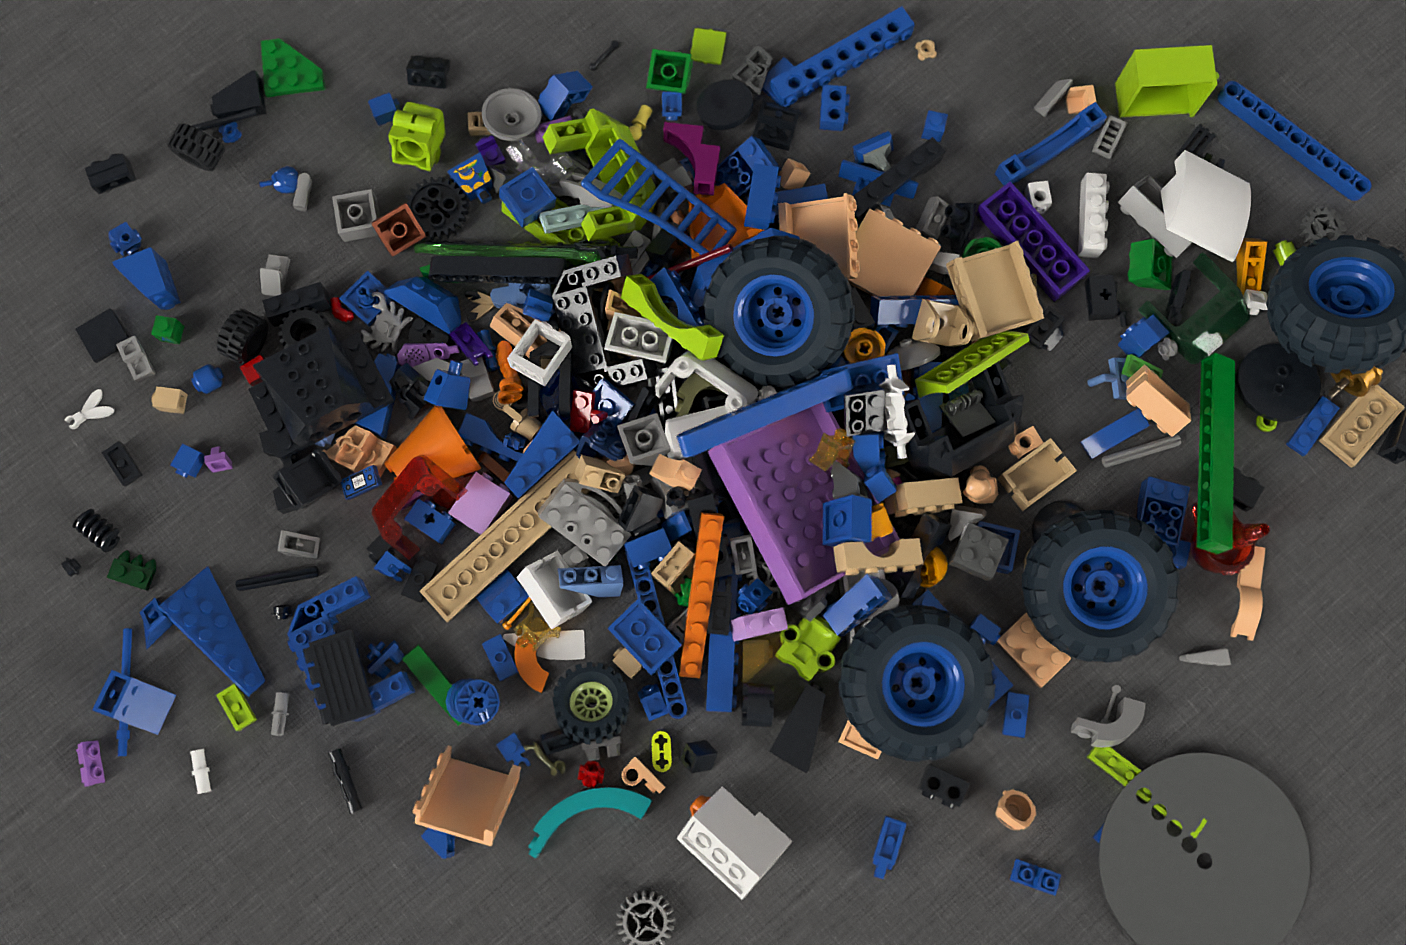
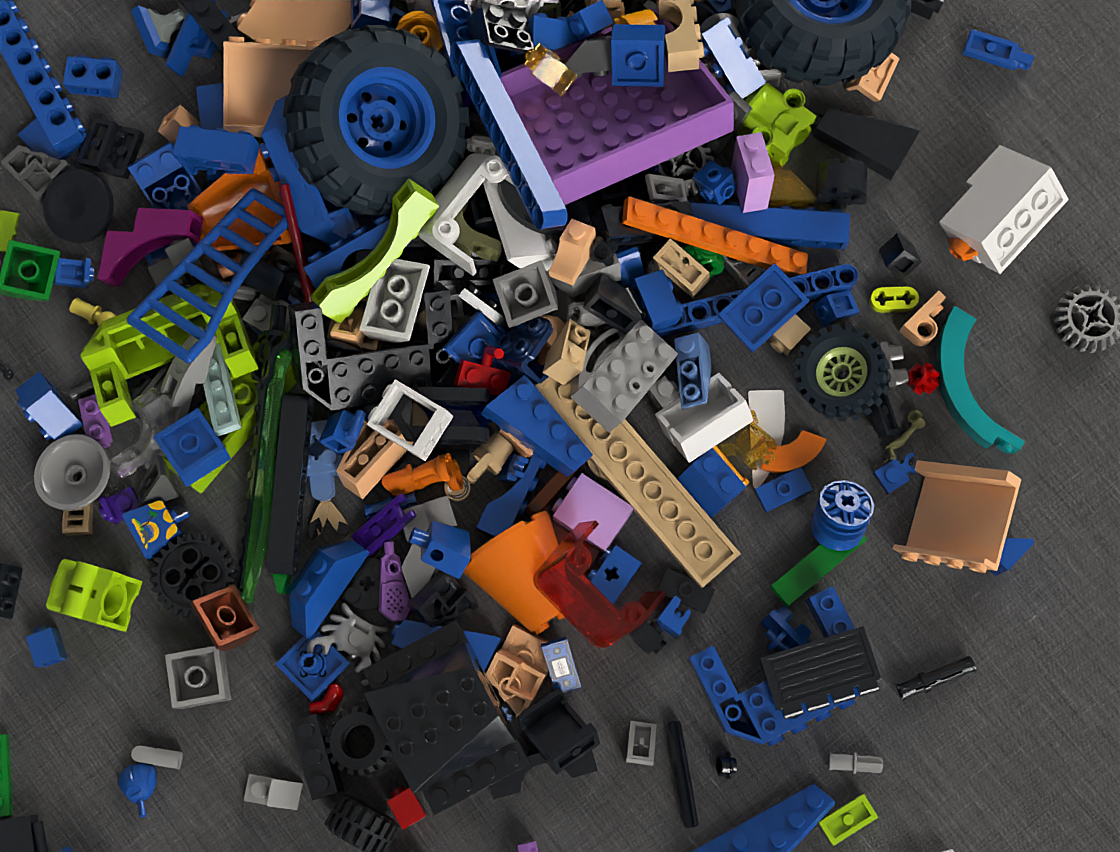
camera: 90 degrees left, 0 degrees up
(720, 609) = (738, 219): black hinge -> none

